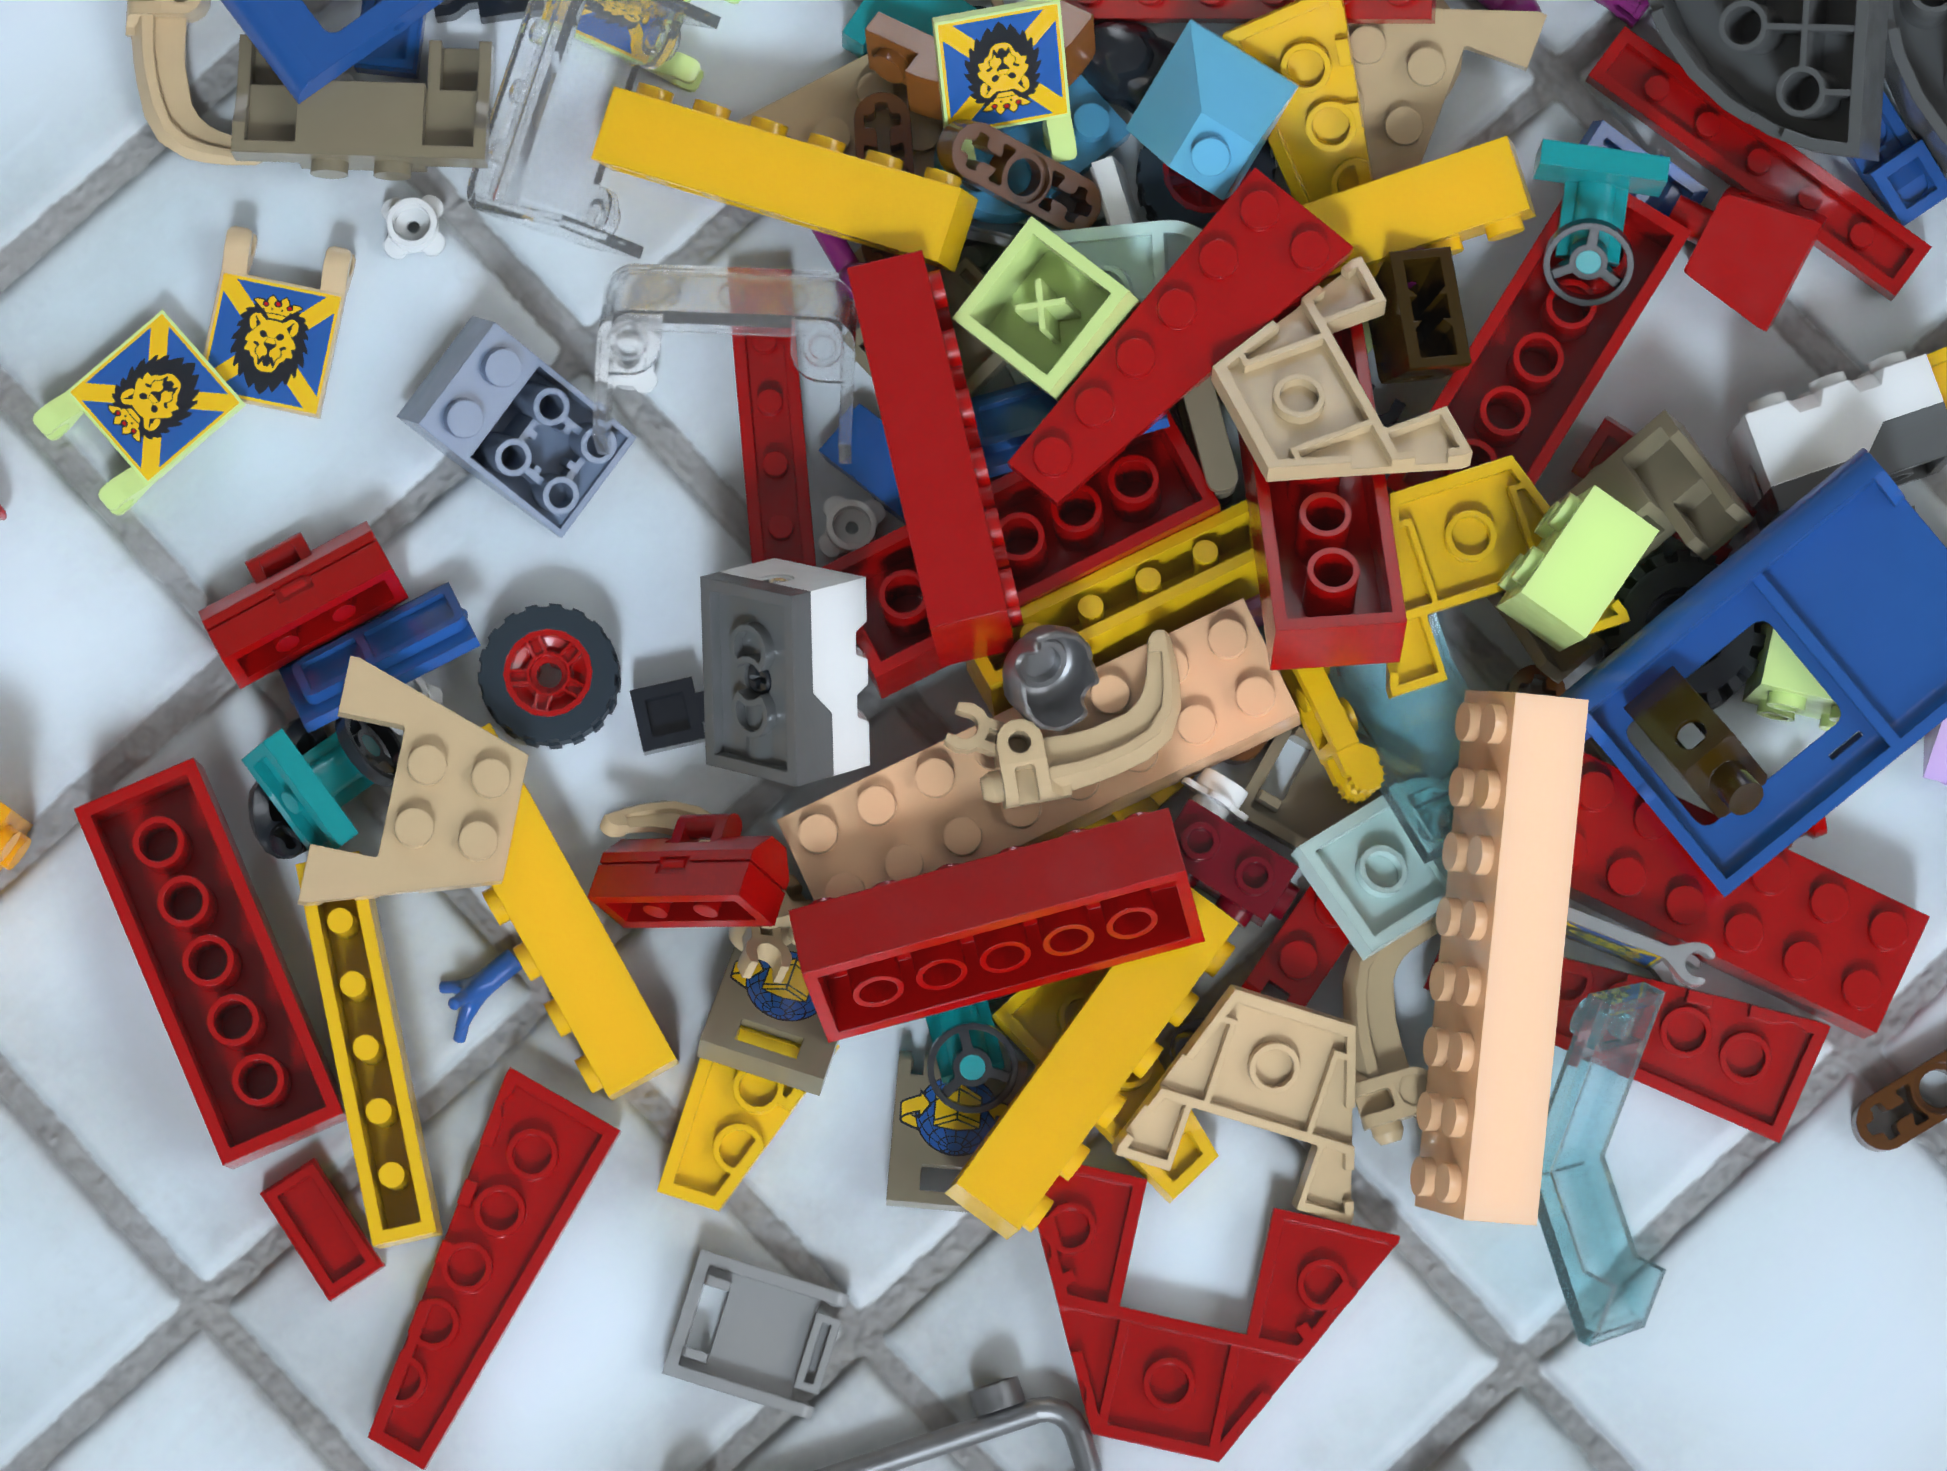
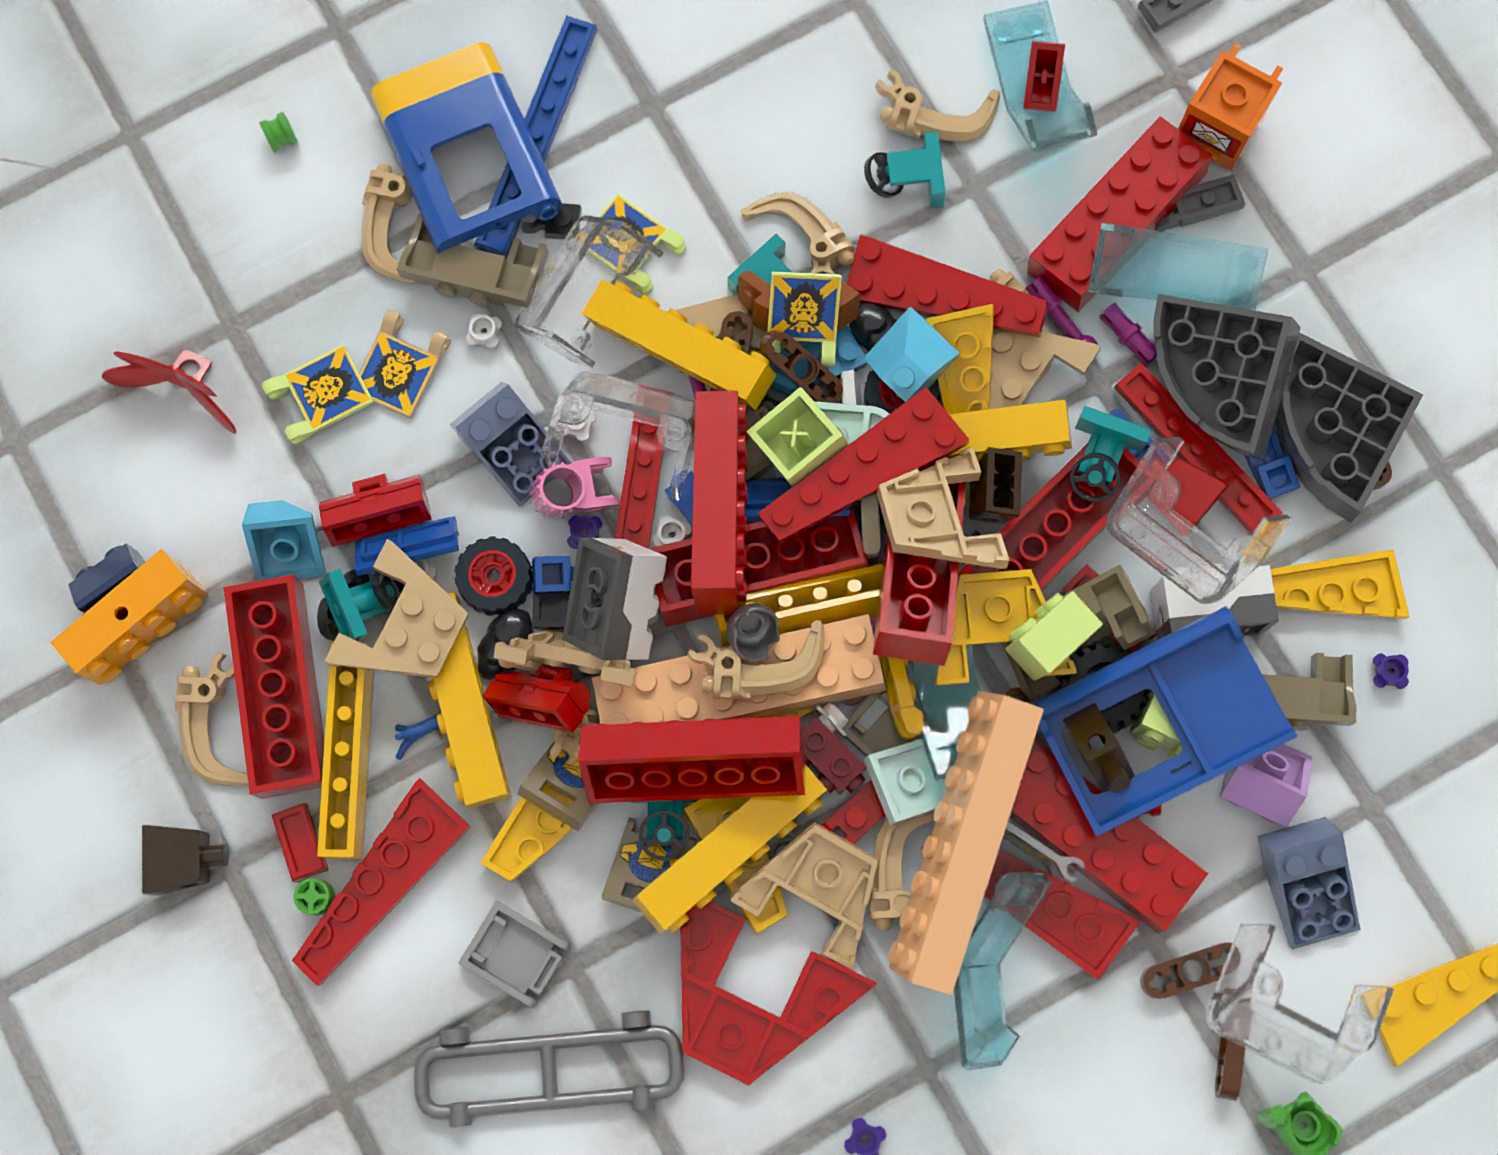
camera: 20 degrees right, 5 degrees down
(67, 1033) = (193, 707): none -> tan piece
(116, 1308) = (177, 859): none -> dark brown torso
(151, 700) = (282, 541): none -> medium azure slope
(365, 1319) = (307, 895): none -> bright green wheel
(597, 778) = (503, 628): none -> black arm
(657, 650) = (551, 574): none -> blue brick
(669, 505) = (580, 481): none -> bright pink piece
(677, 548) = (578, 524): none -> dark purple plate
(704, 790) = (557, 652): none -> tan wing
(1750, 352) = (1171, 544): none -> clear windscreen

